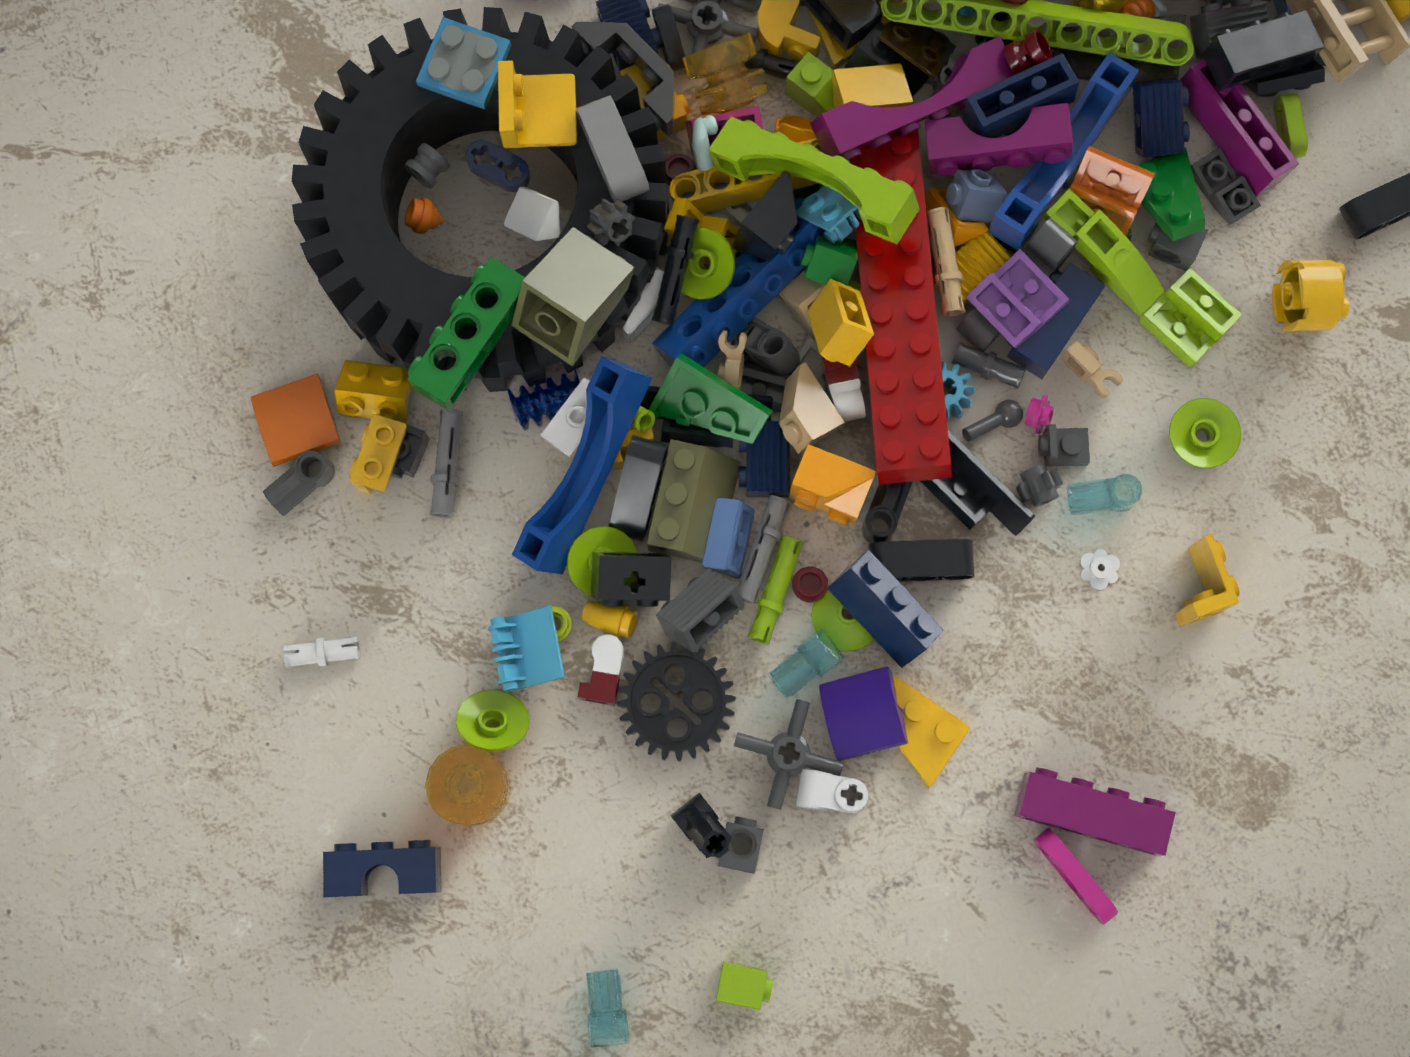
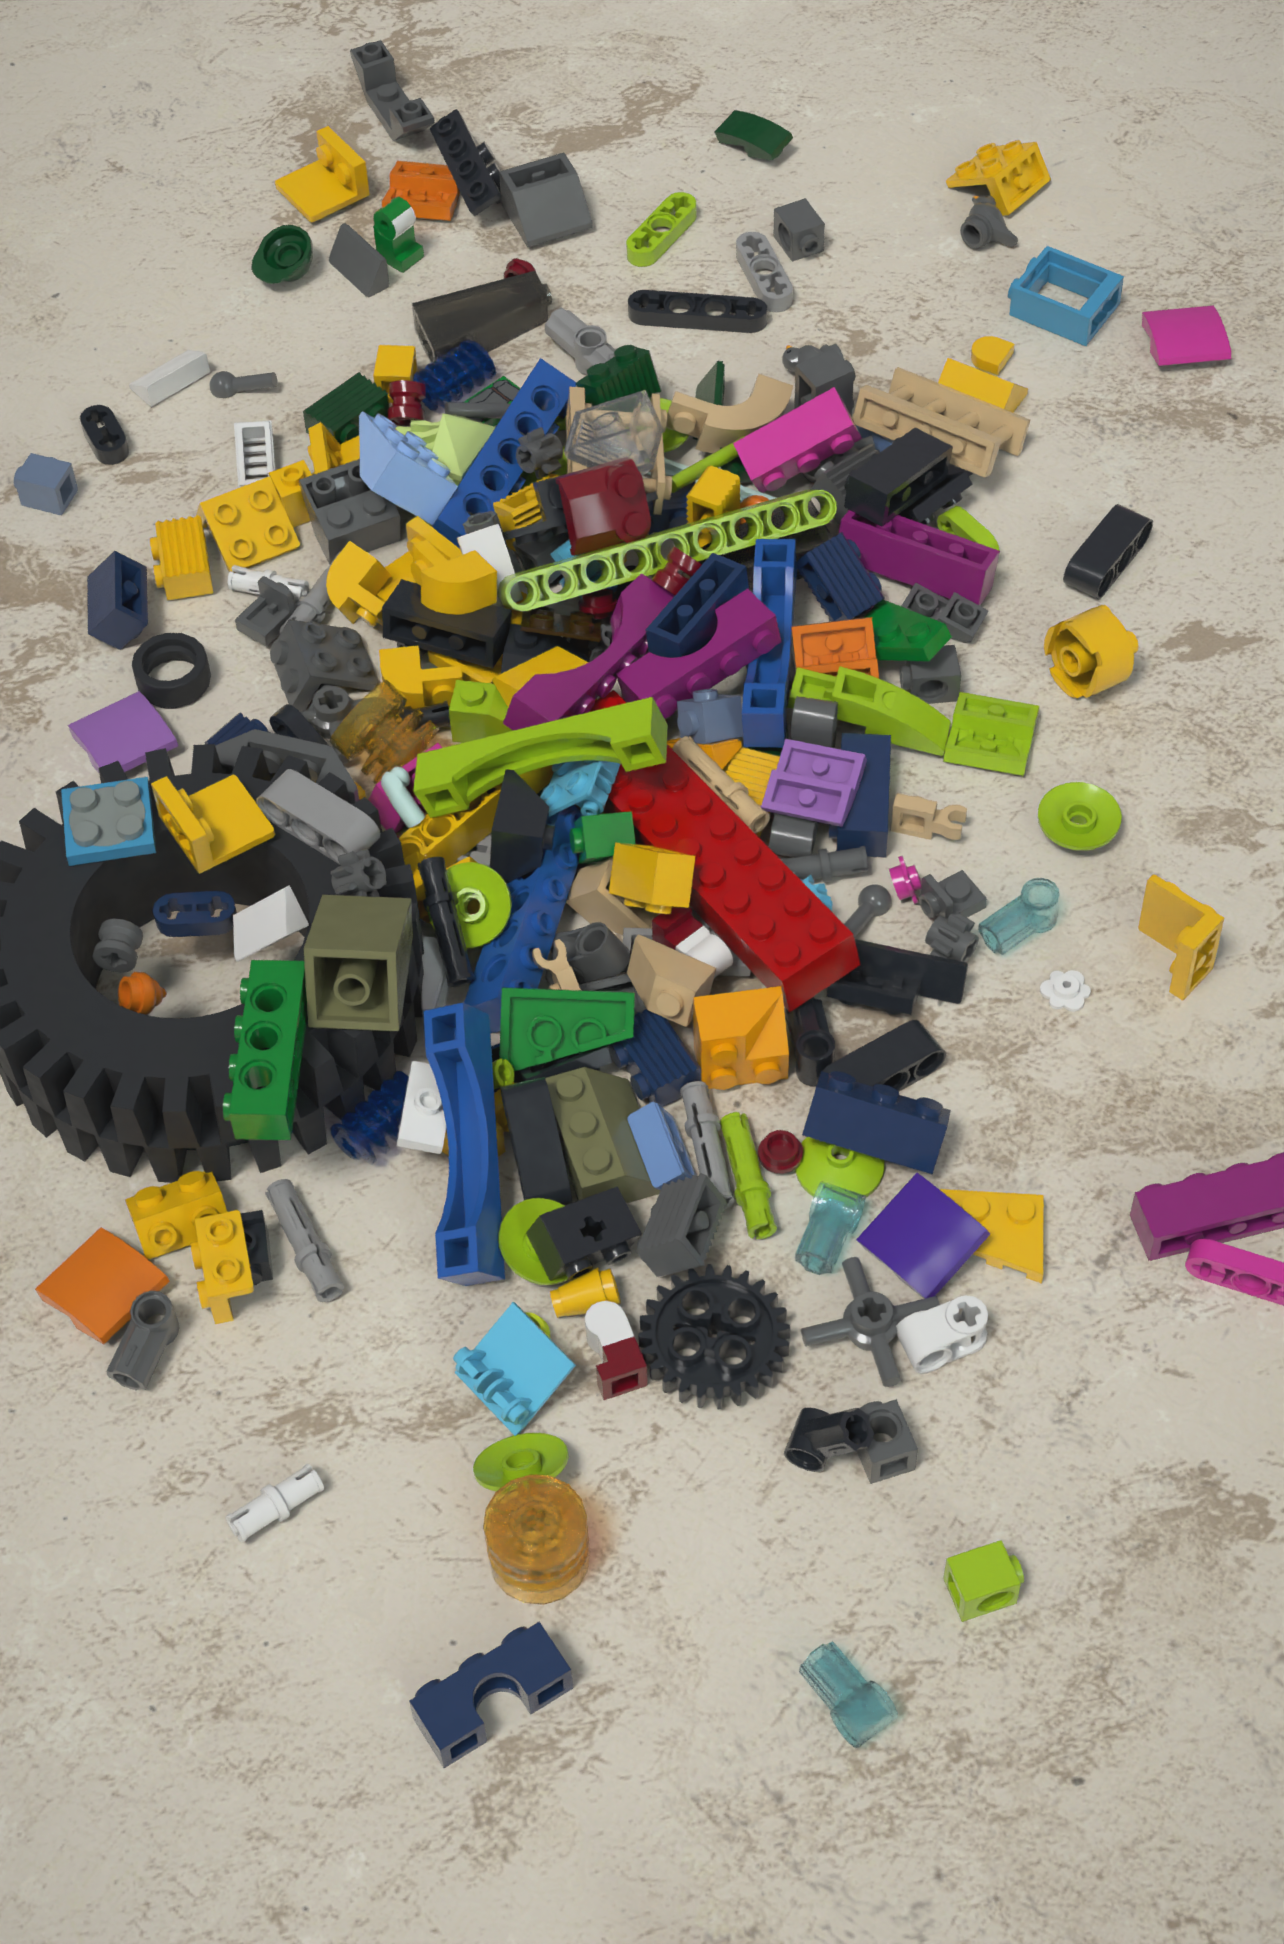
camera: 30 degrees left, 25 degrees down
(959, 40) = (598, 603): none -> dark red plate

